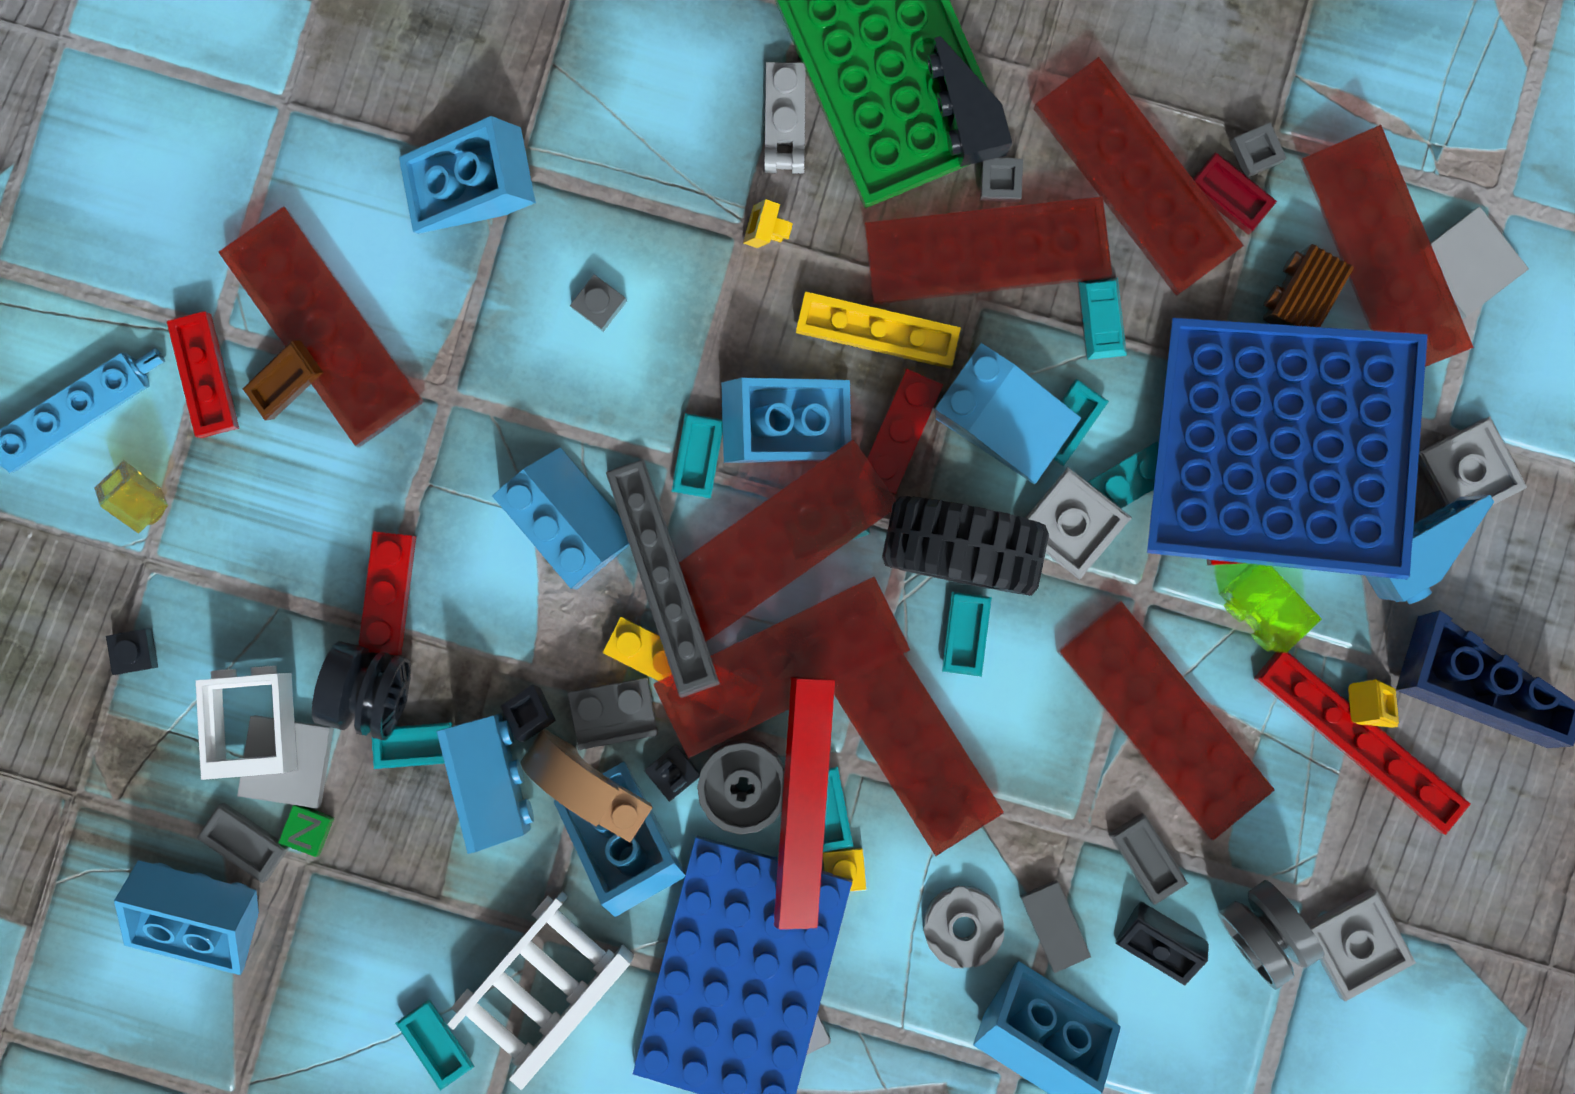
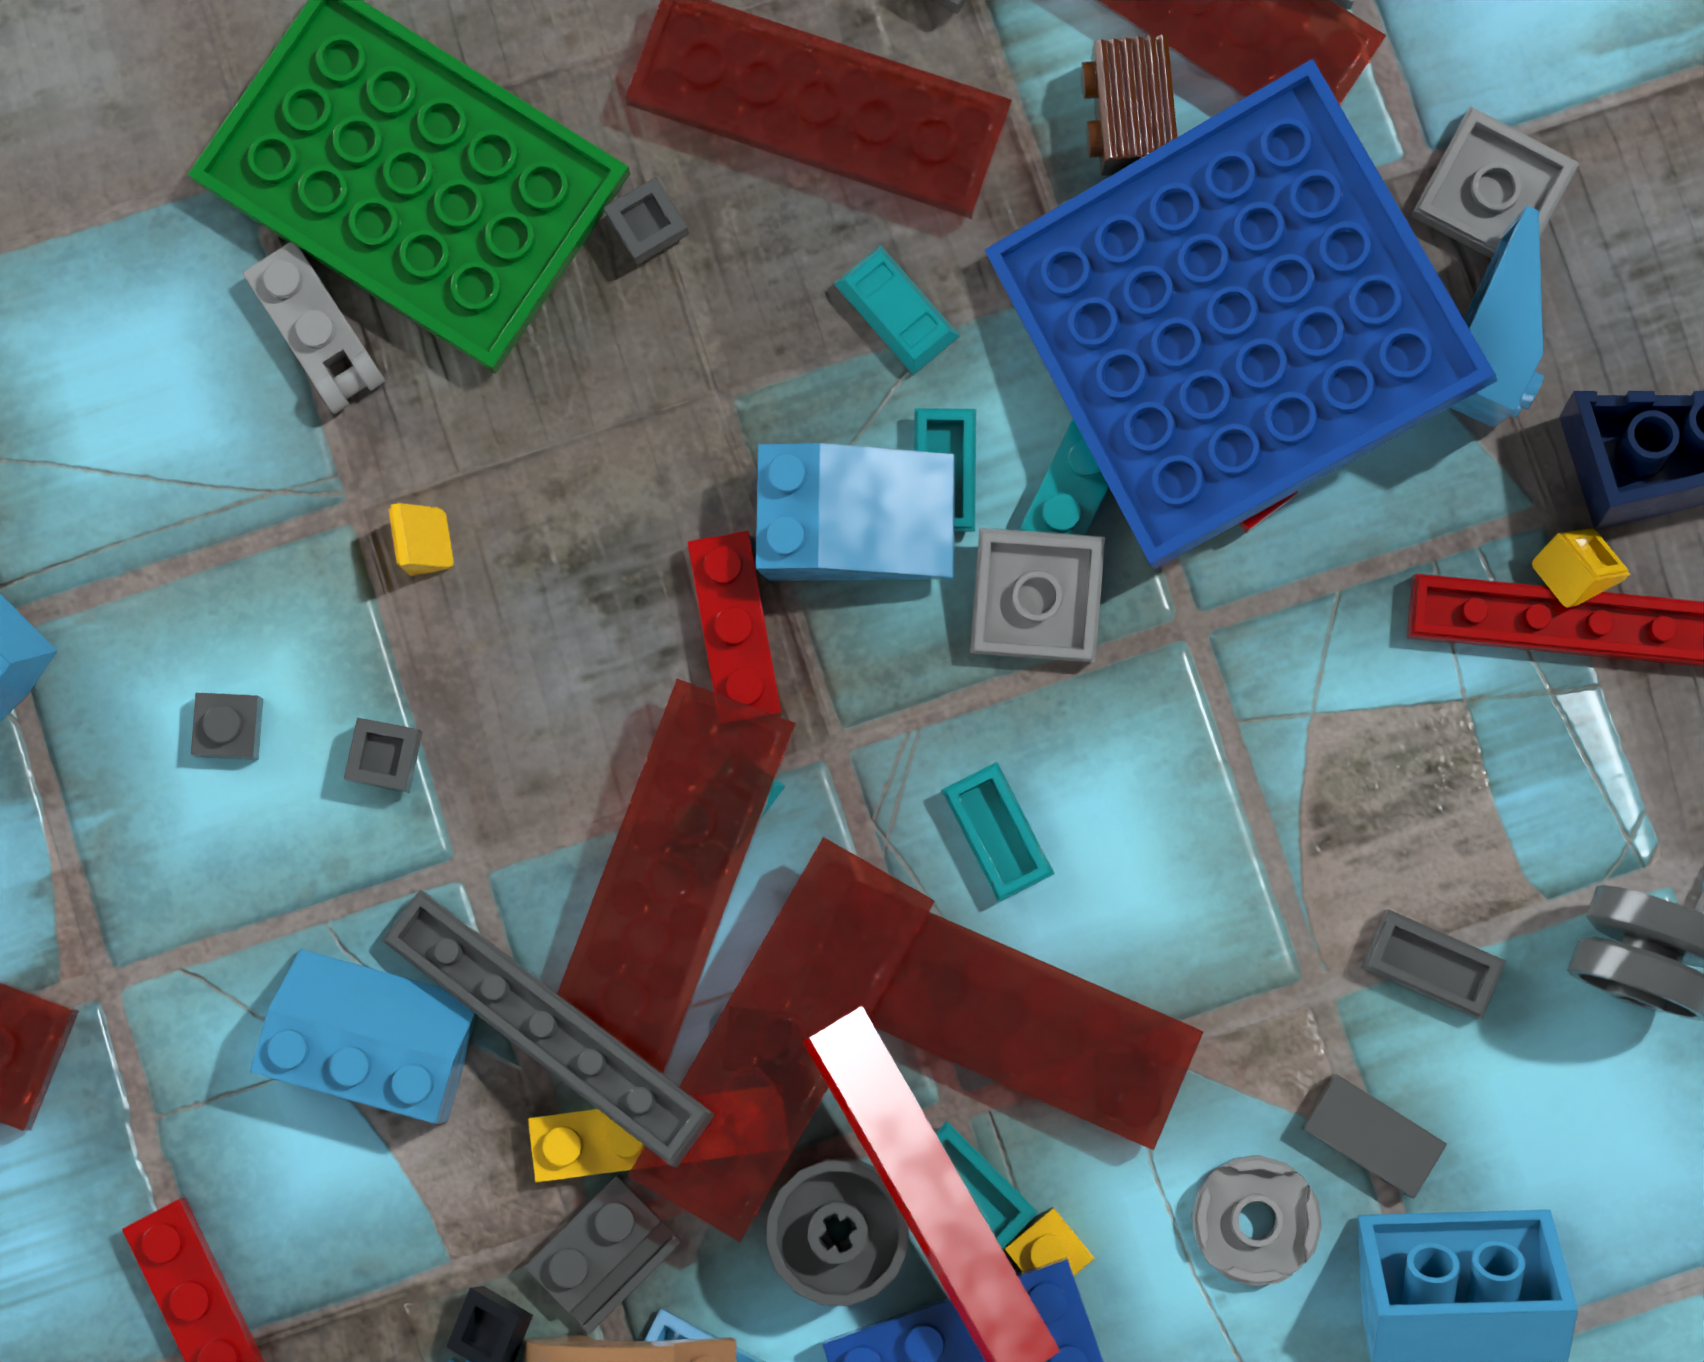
camera: 30 degrees left, 5 degrees down
(670, 374) = (383, 755): none -> dark grey plate
(672, 772) = (735, 1279): black tile -> none
(698, 456) = (490, 837): teal tile -> none
(765, 225) = (379, 480): yellow tile -> none
(766, 271) = (420, 538): none -> yellow slope
(784, 419) = (571, 713): dark azure slope -> none
(878, 330) = (616, 517): yellow plate -> none
(965, 544) = (911, 715): black tyre -> none
(973, 111) = (549, 159): black slope -> none
(988, 250) = (689, 322): clear red plate -> none
(1163, 943) = (1529, 1062): black slope -> none
(1165, 720) = (1331, 769): clear red plate -> none
(1233, 193) = (955, 43): dark red tile -> none
(1269, 608) = (1360, 534): clear neon green brick -> none

